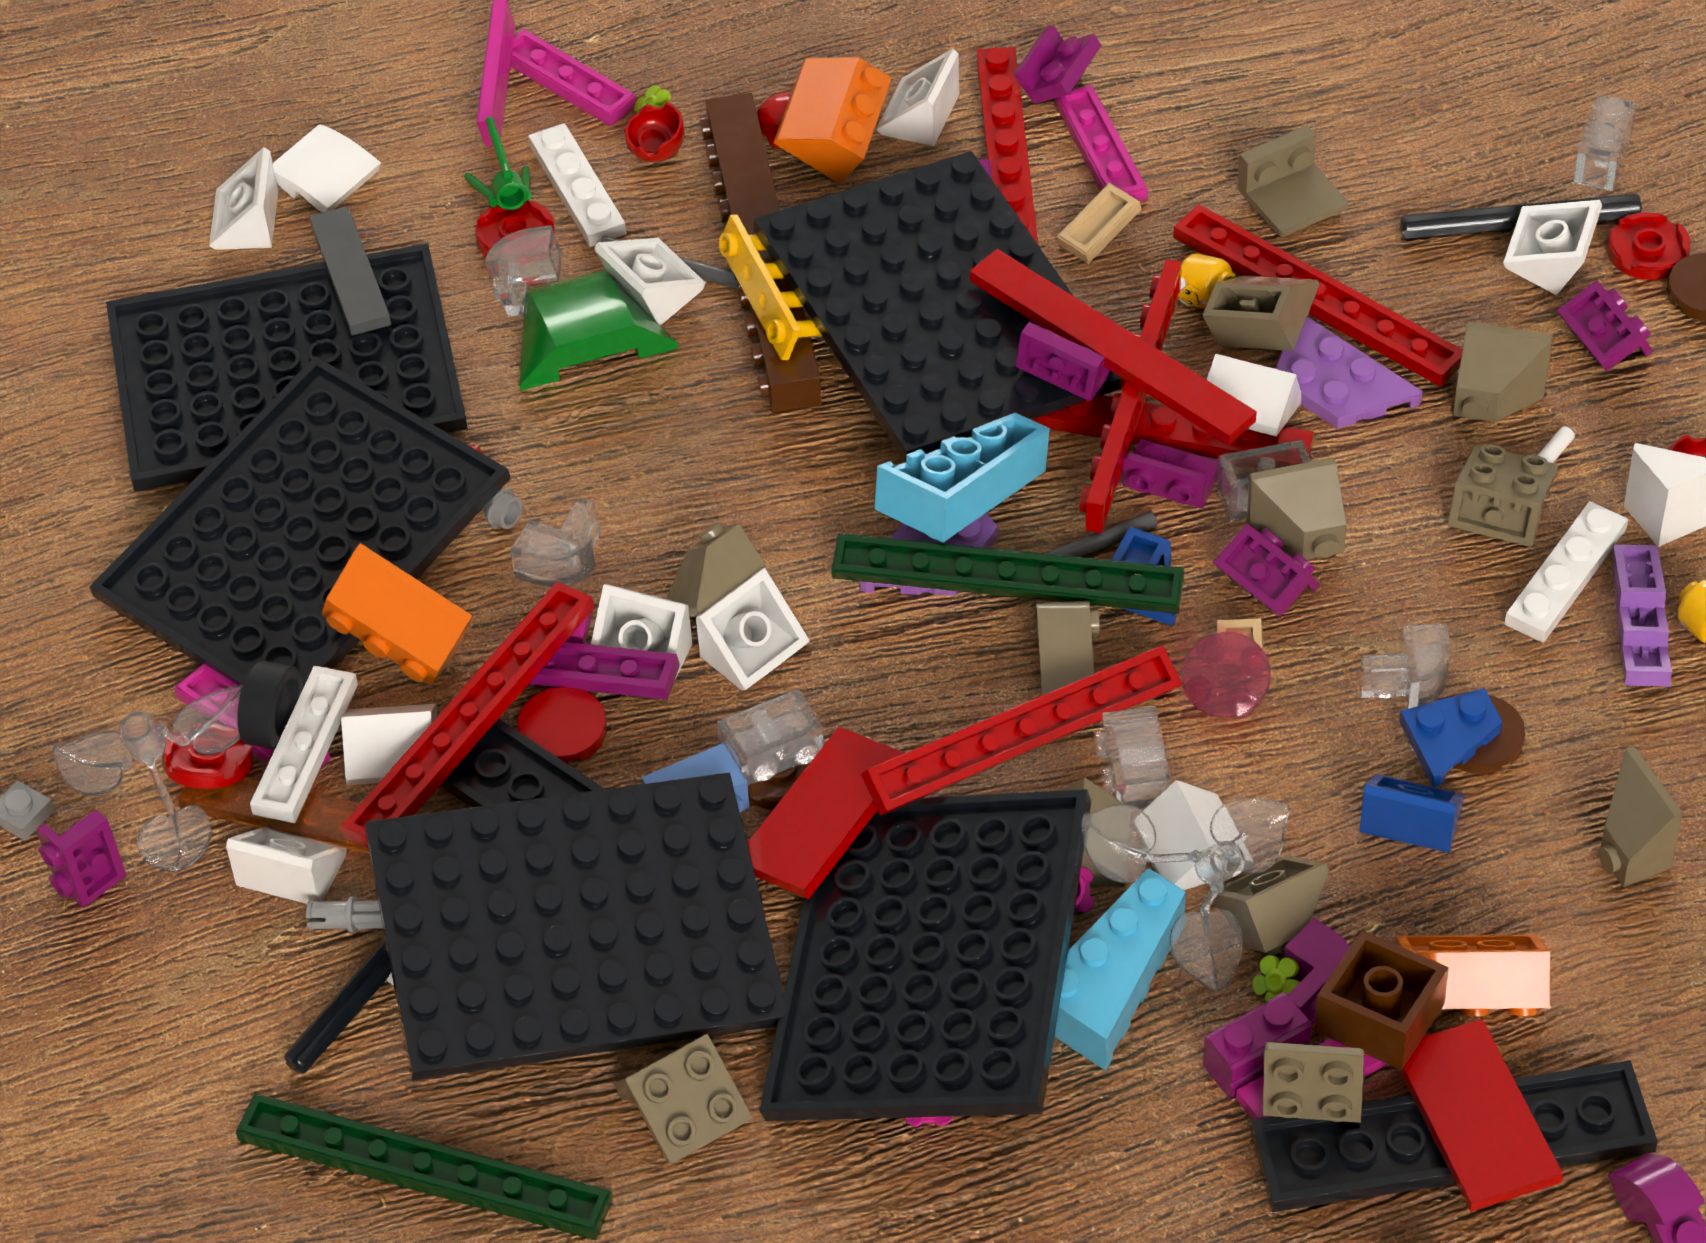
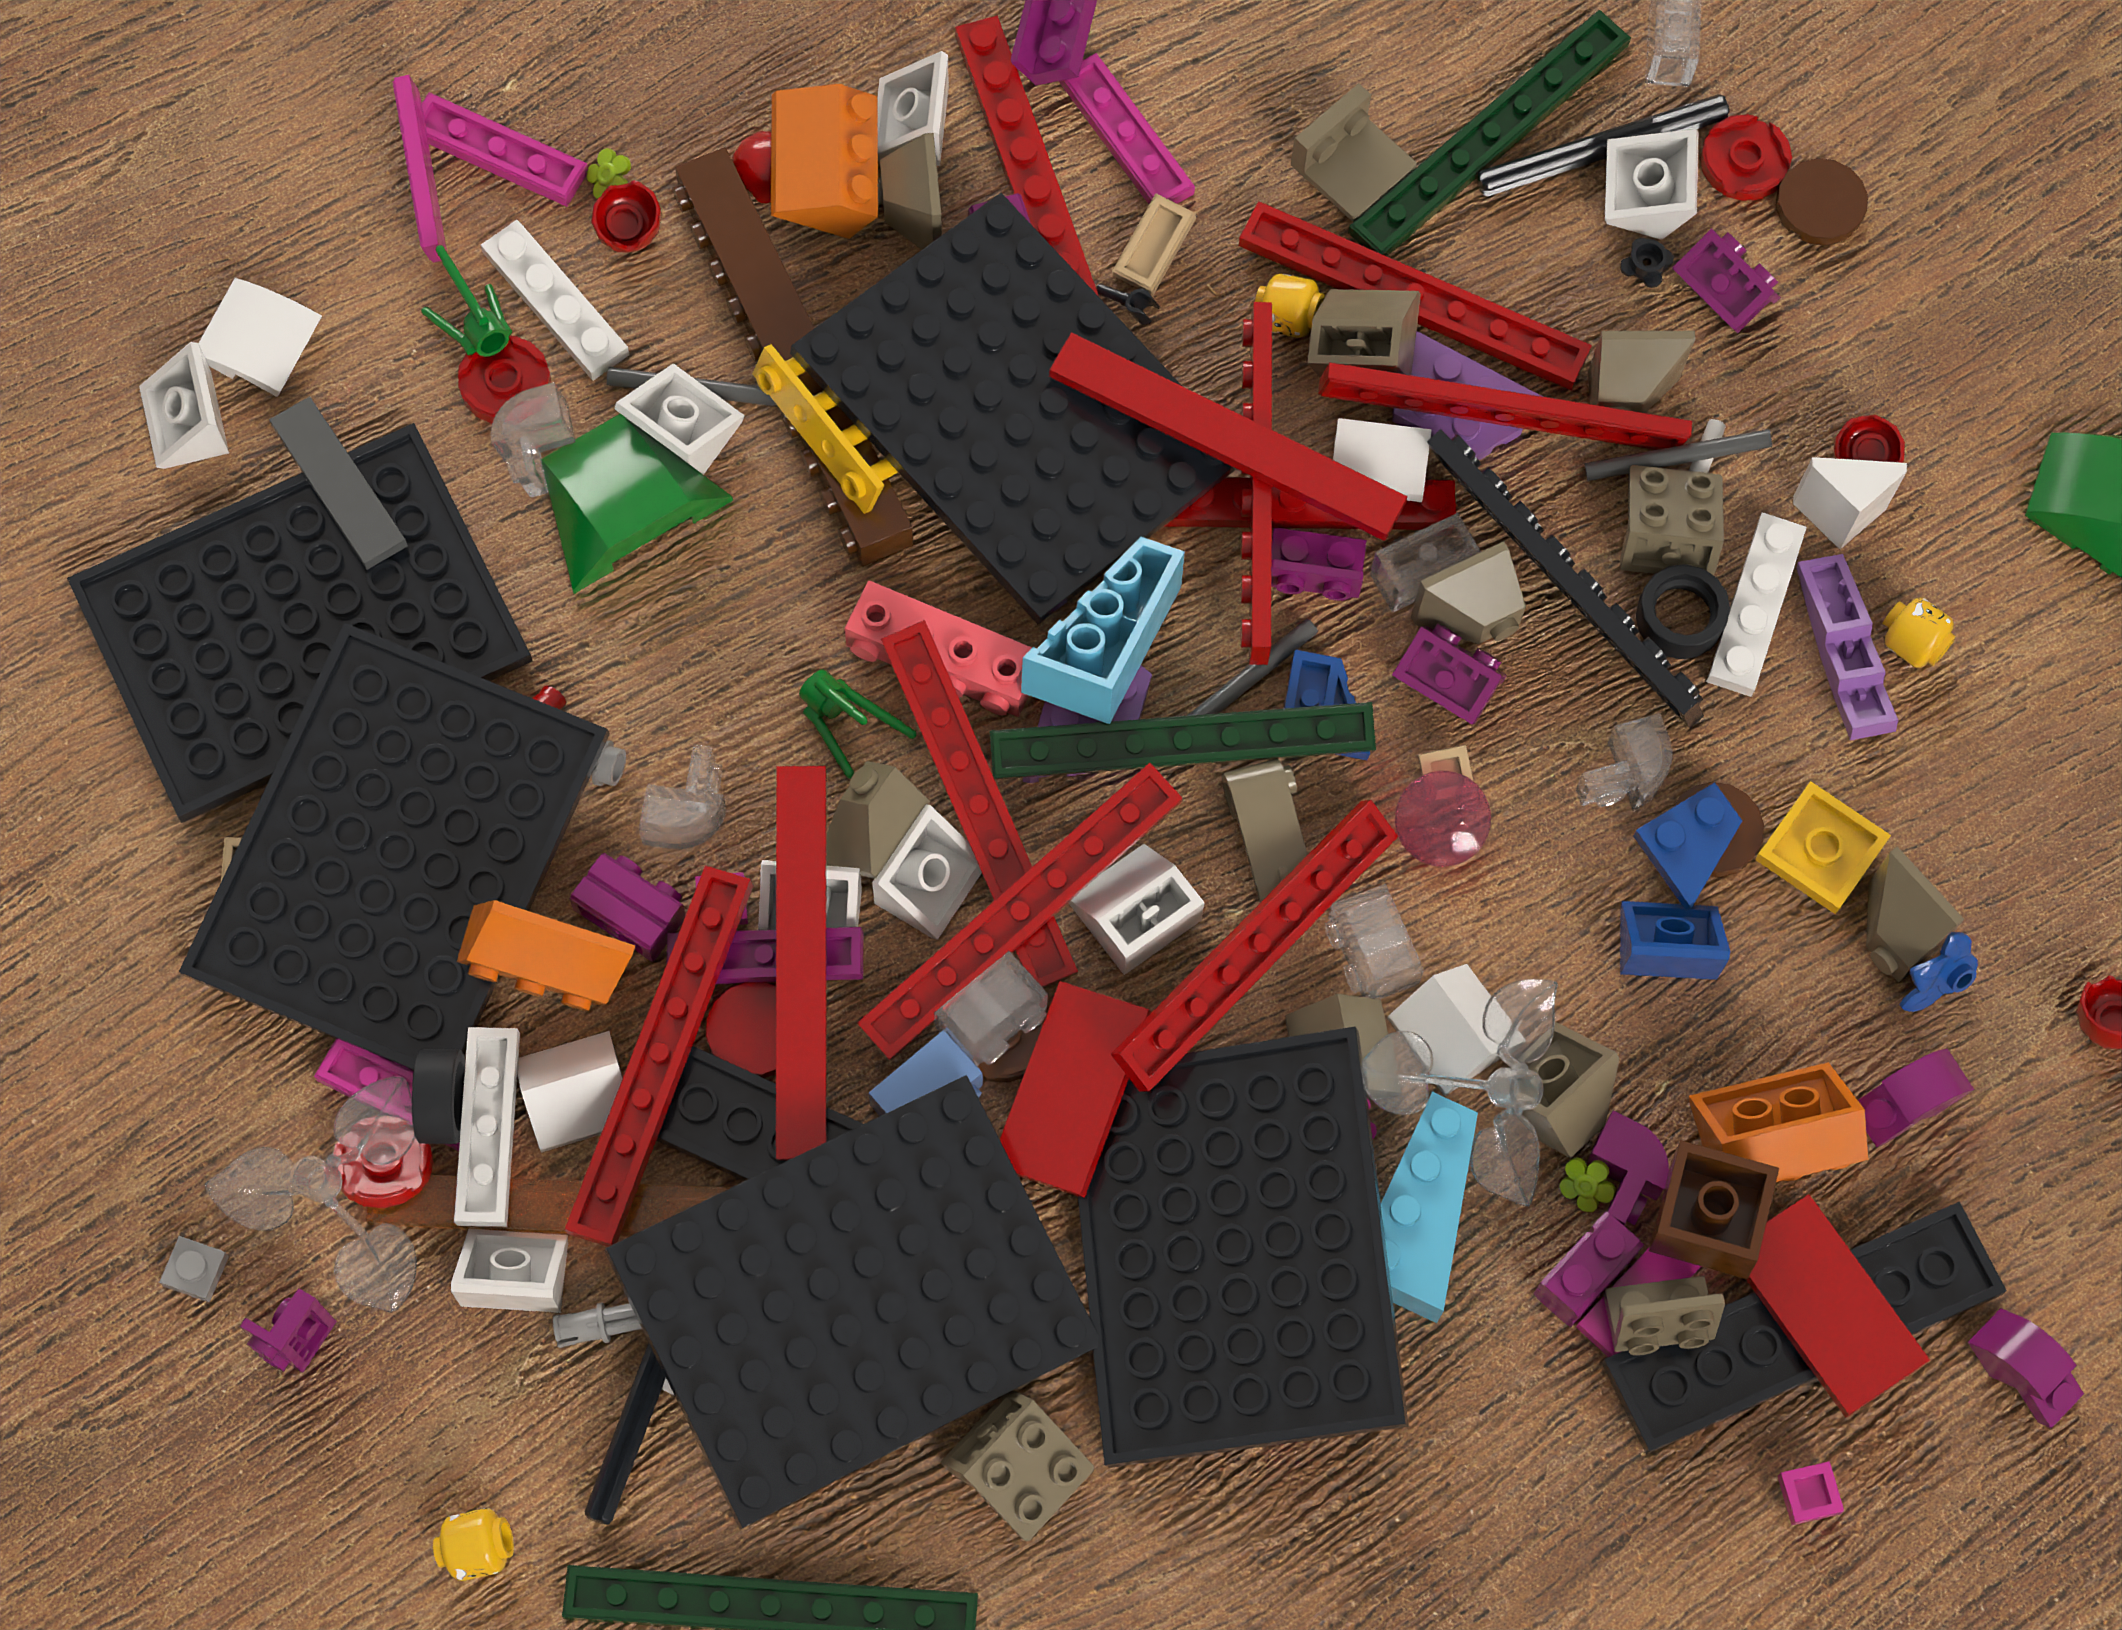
camera: 20 degrees left, 20 degrees up
(179, 1057) = (473, 1544): none -> yellow head
(486, 599) = (629, 905): none -> magenta brick
(616, 652) = (801, 959): none -> red tile
(711, 495) = (829, 698): none -> green plant
(810, 583) = (972, 788): none -> red plate
(813, 473) = (976, 658): none -> coral brick
(827, 658) = (1021, 909): none -> red plate
(900, 140) = (911, 191): none -> dark tan slope
(930, 694) = (1138, 907): none -> white slope
(1061, 361) = (1181, 473): magenta bracket -> none
(1071, 261) = (1134, 301): none -> black hand
(1371, 377) = (1503, 407): none -> red tile
(1393, 511) = (1557, 565): none -> black plate
(1423, 194) = (1489, 135): none -> dark green tile
(1493, 536) = (1690, 579): none -> black tyre
(1527, 444) = (1679, 454): none -> dark grey bar
(1536, 303) = (1648, 250): none -> black plate
(1572, 762) = (1822, 847): none -> yellow plate
(1607, 958) = (1913, 1095): none -> magenta brick
(1658, 870) = (1948, 973): none -> blue plate

